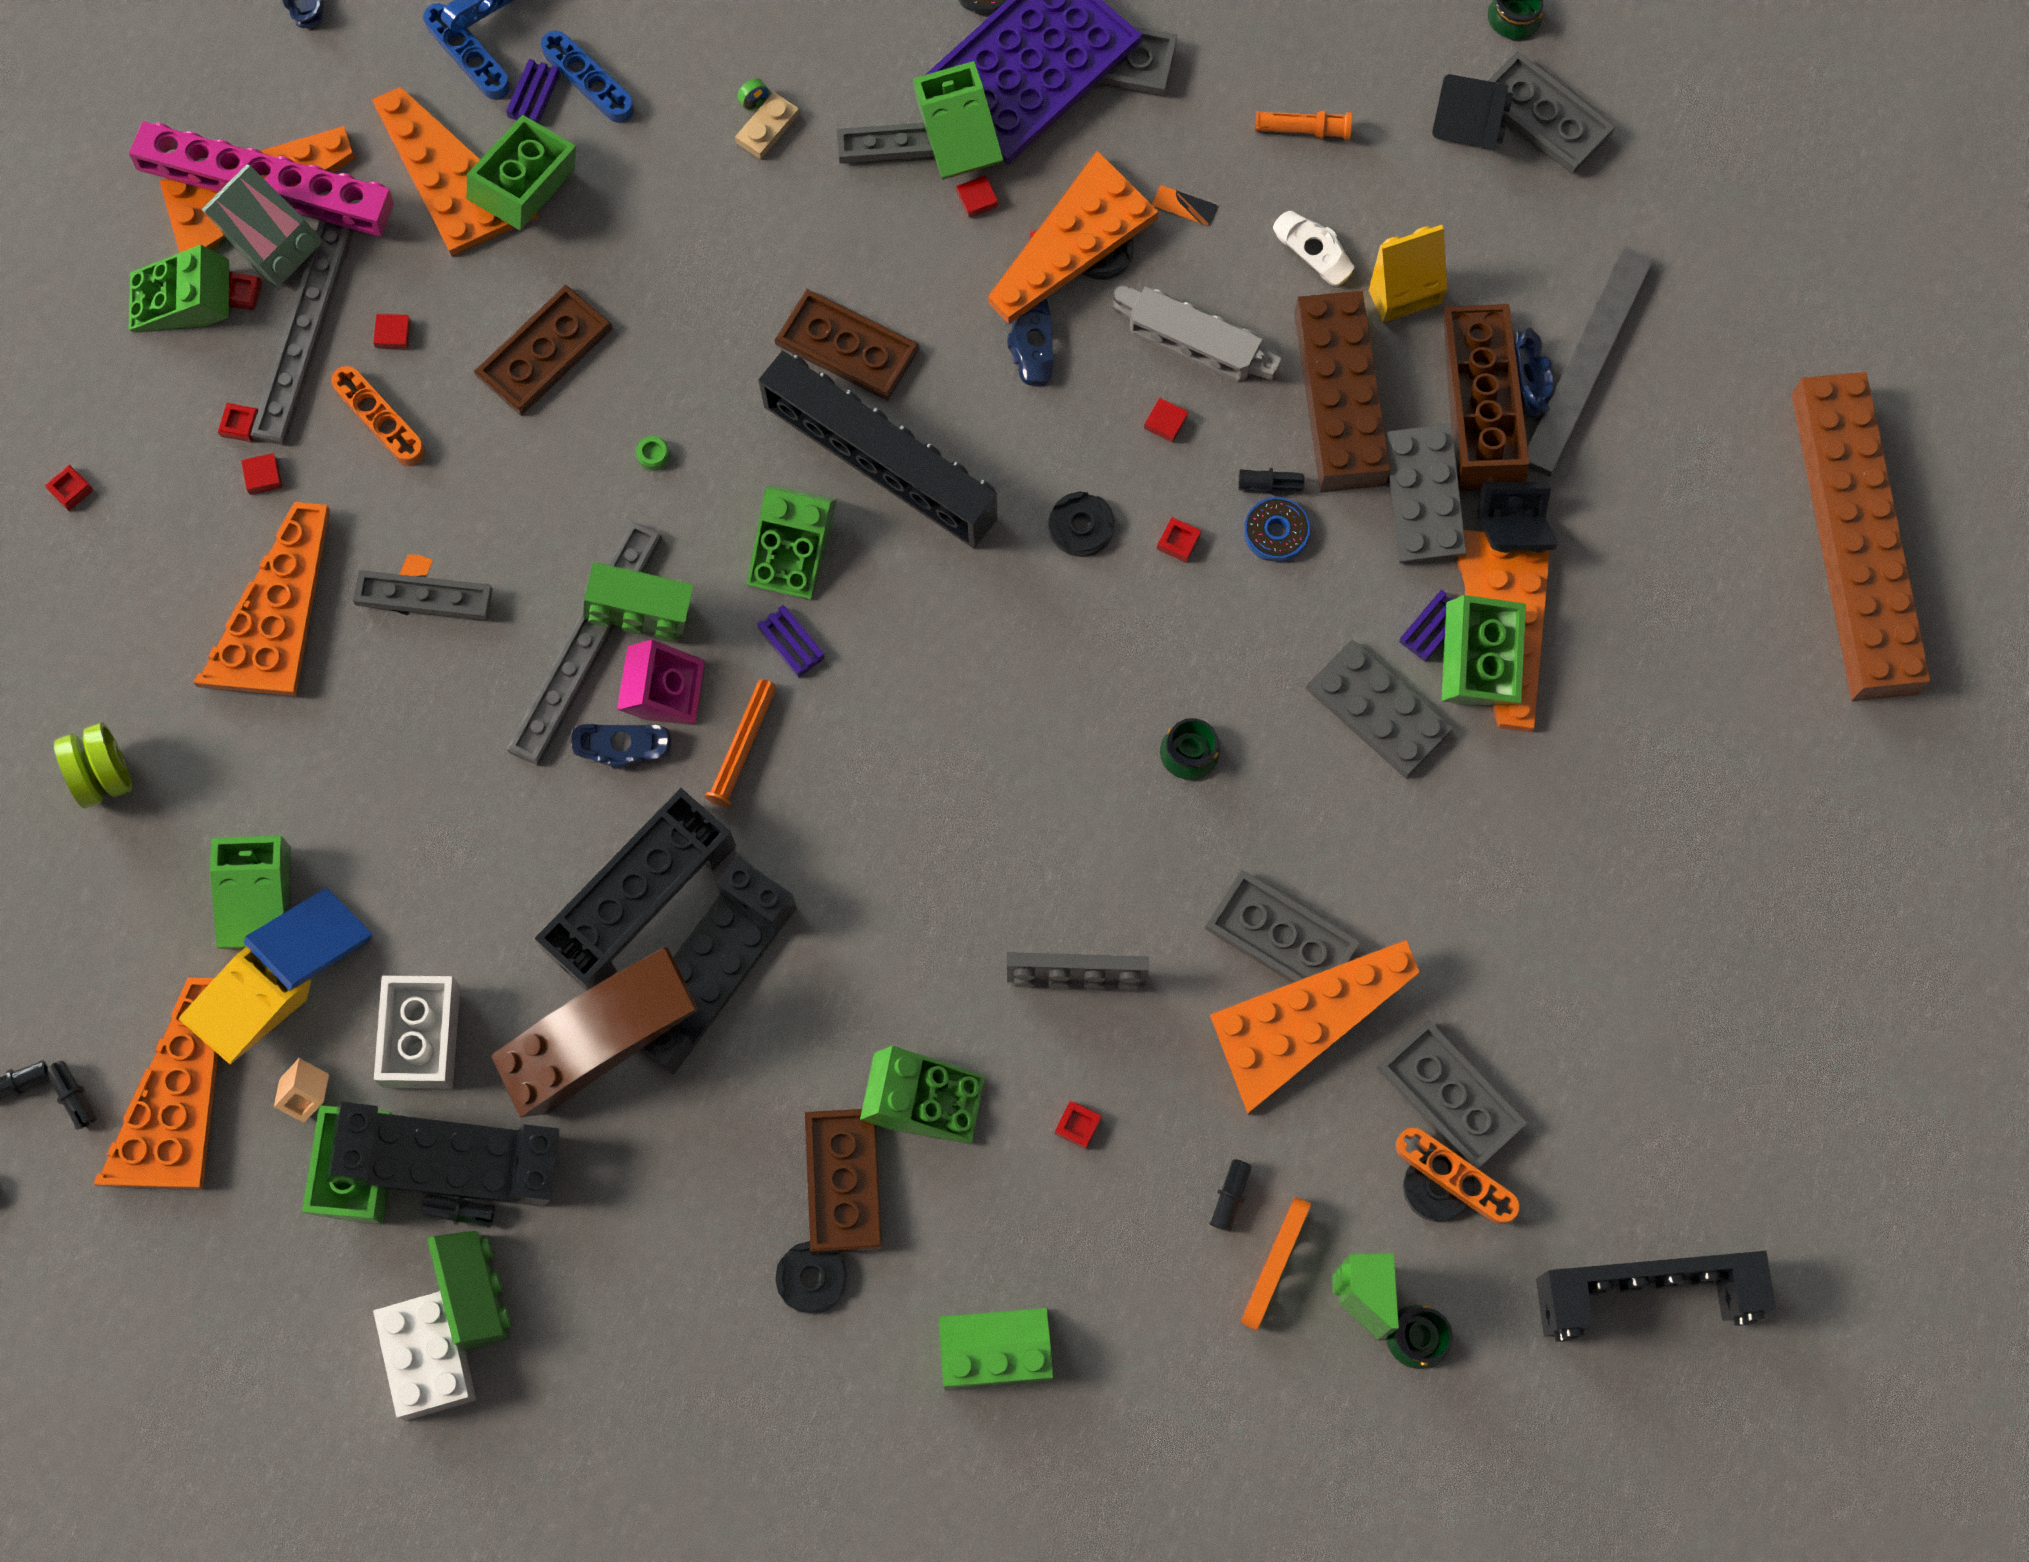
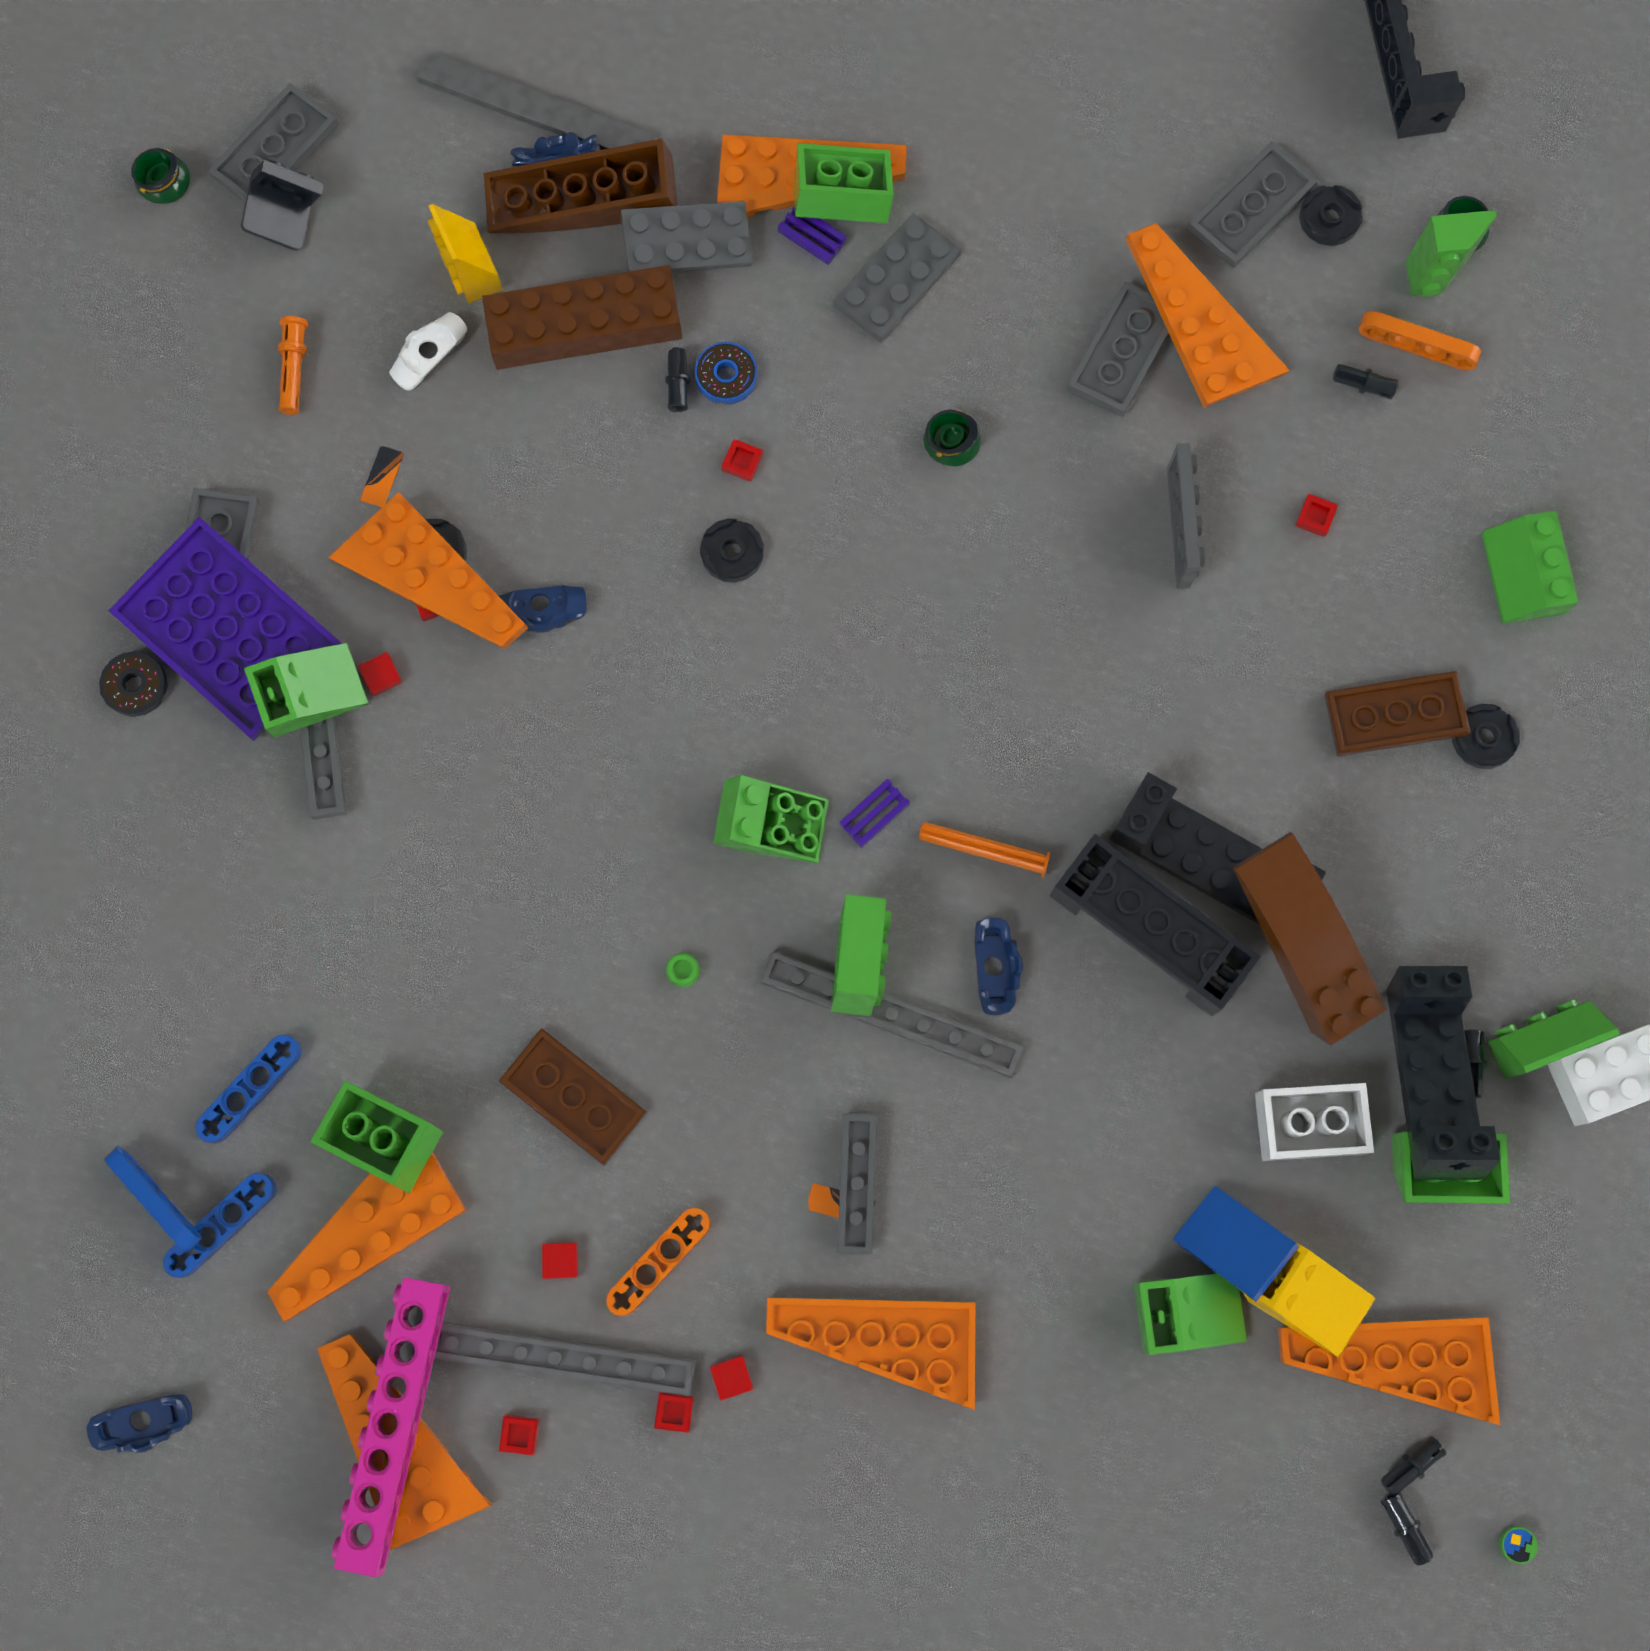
camera: 95 degrees left, 5 degrees up
(69, 487) = (761, 1590): red tile -> none
(93, 765) = (1080, 1497): lime wheel -> none
(180, 291) = (527, 1503): bright green slope -> none
(262, 225) = (457, 1409): sand green slope -> none
(301, 1090) = (1379, 1232): light nougat panel -> none
(541, 70) = (241, 1138): dark purple tile -> none
(660, 683) = (933, 932): dark pink slope -> none
(753, 94) = (269, 908): tile -> none
(767, 125) = (303, 892): tan plate -> none
(847, 344) = (551, 789): reddish brown tile -> none
(879, 448) = (673, 738): black brick -> none
(922, 1096) = (1312, 650): bright green slope -> none
(1166, 420) = (618, 478): red tile -> none
(1194, 334) = (527, 455): light grey hinge -> none
(1460, 1170) = (1326, 195): orange beam -> none
(1516, 516) = (708, 162): black bracket -> none

